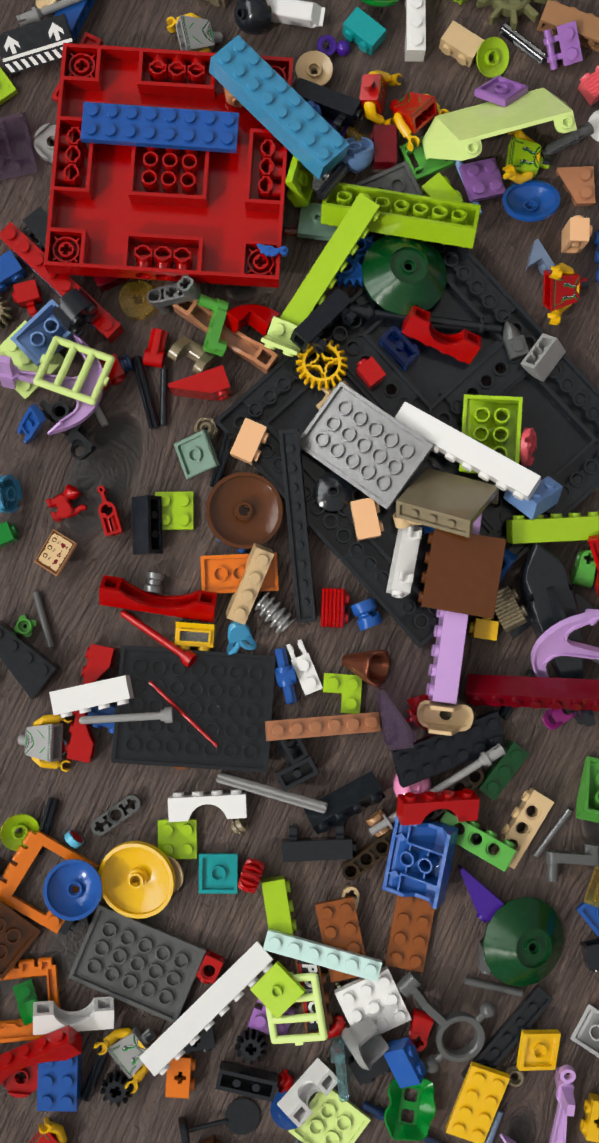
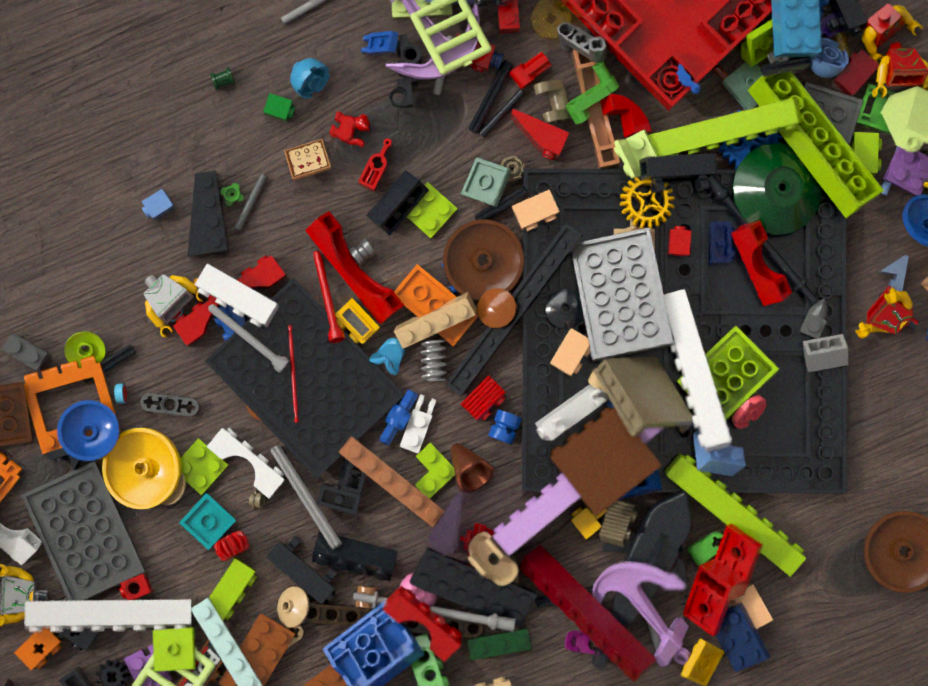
camera: 40 degrees right, 0 degrees up
(284, 535) = (496, 308): none -> dark orange dish
(334, 878) = (293, 606): none -> tan dish

